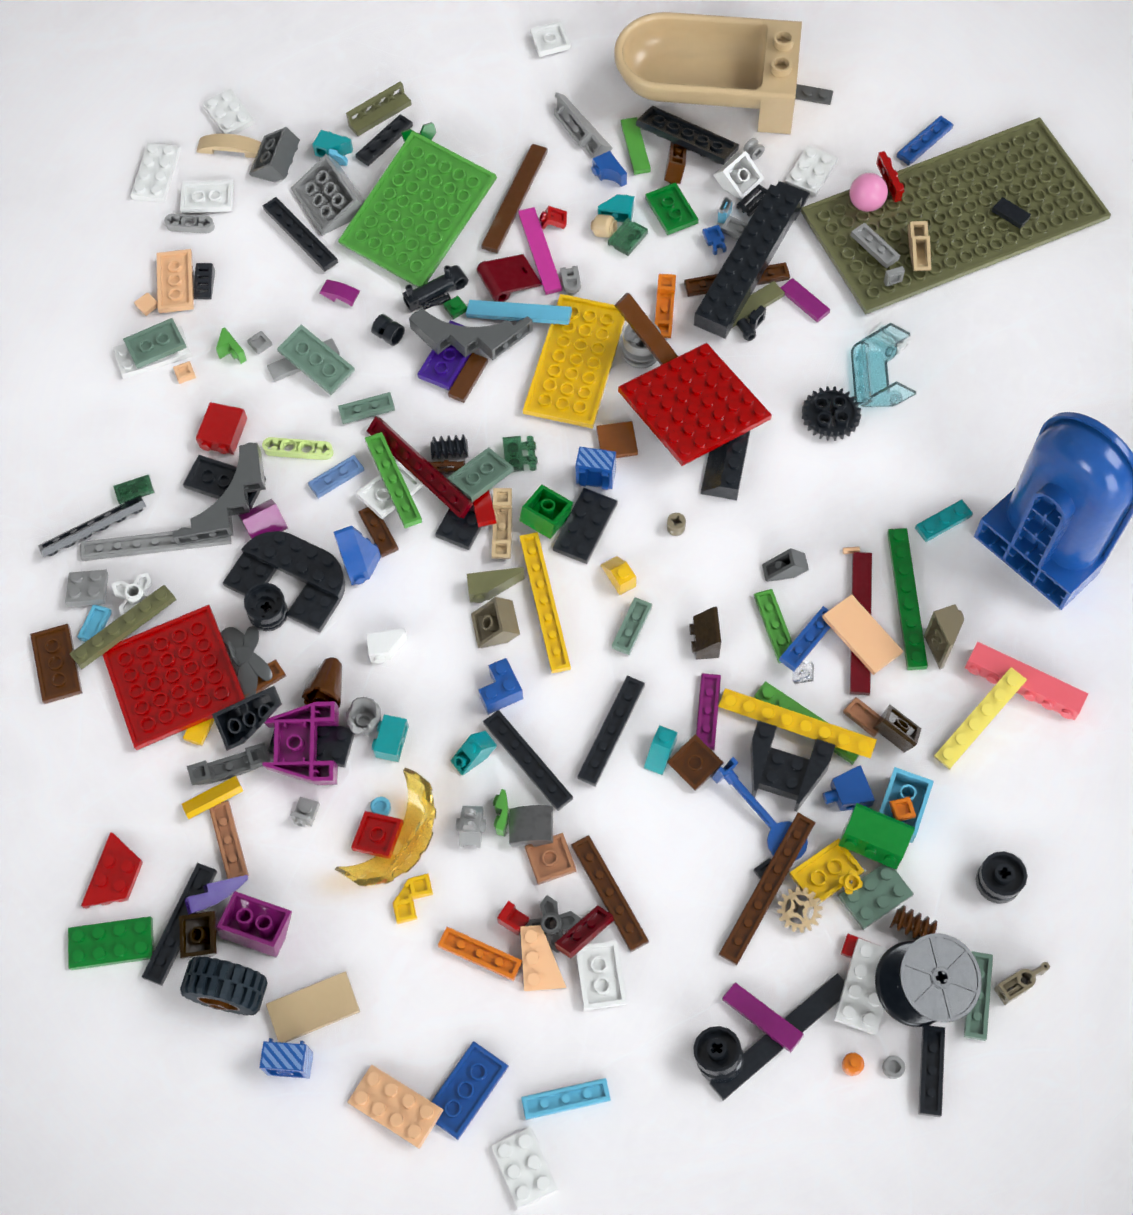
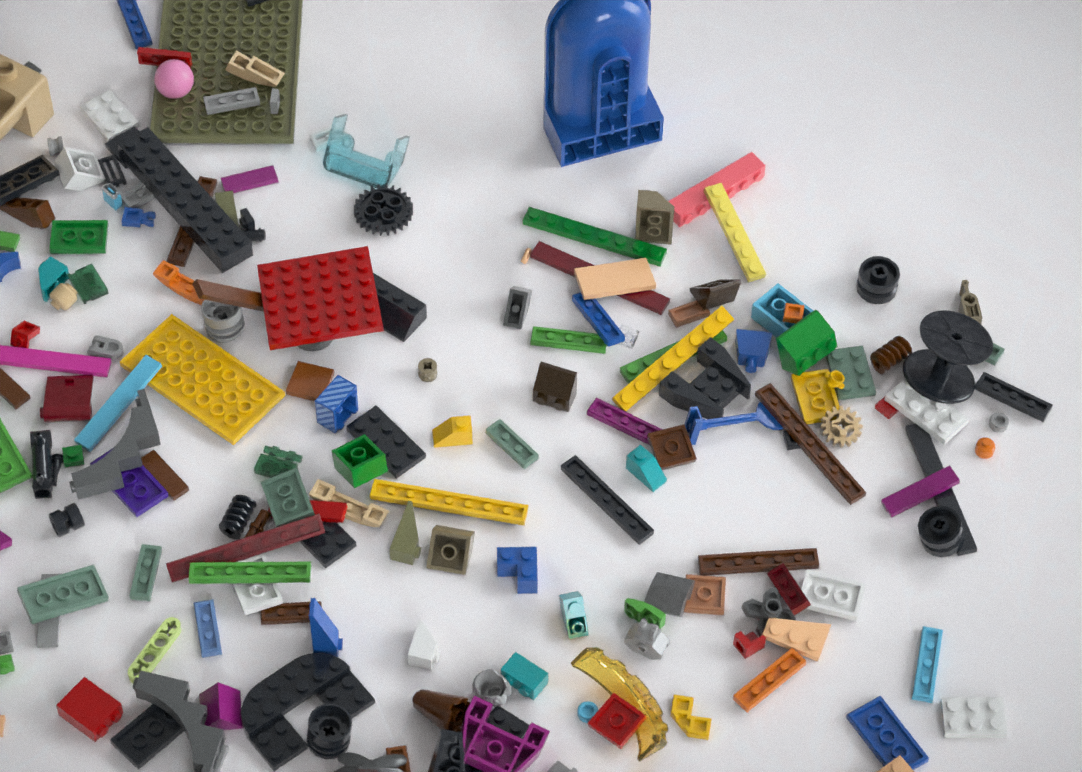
camera: 70 degrees left, 10 degrees down
(528, 760) = (602, 574): black plate -> none
(943, 520) = (535, 179): teal plate -> none

